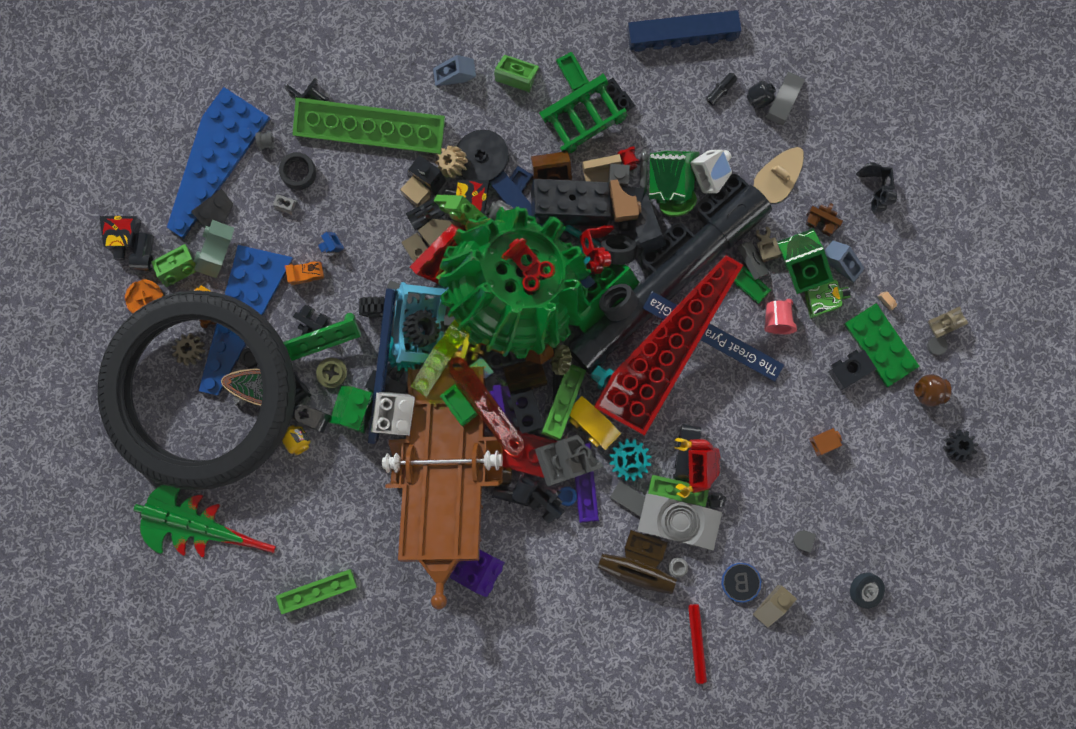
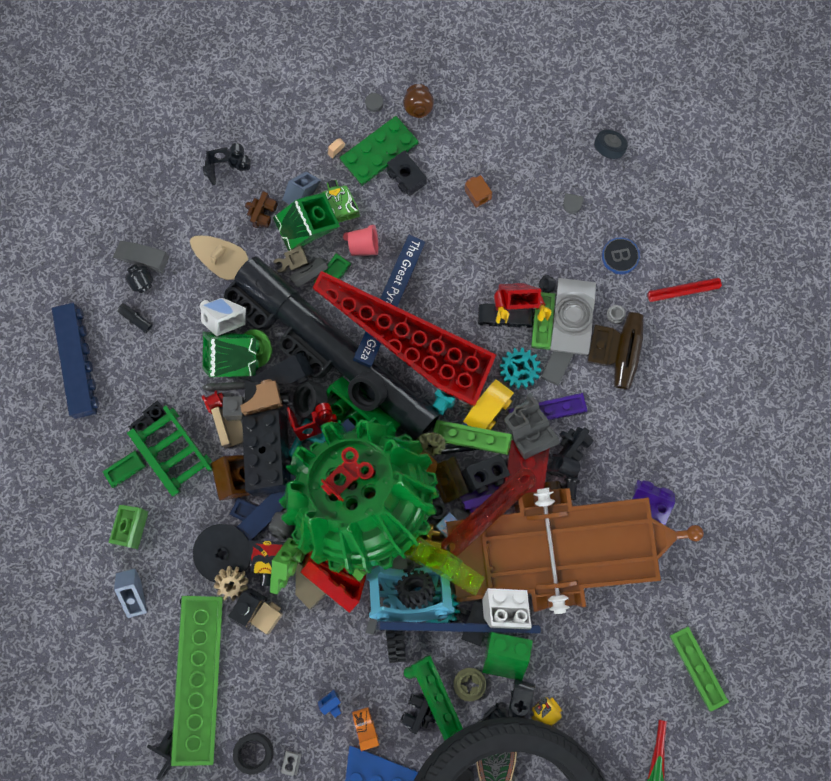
camera: 90 degrees left, 5 degrees down
(414, 246) = (326, 611): dark tan plate -> none
(424, 213) = (290, 604): black hips -> none
(459, 405) = (490, 541): green tile -> none
(567, 495) = (562, 424): blue tile -> none
(774, 606) = (638, 222): dark tan slope -> none
(947, 322) = (352, 93): dark tan hips -> none
(954, 440) = (470, 79): black gear -> none

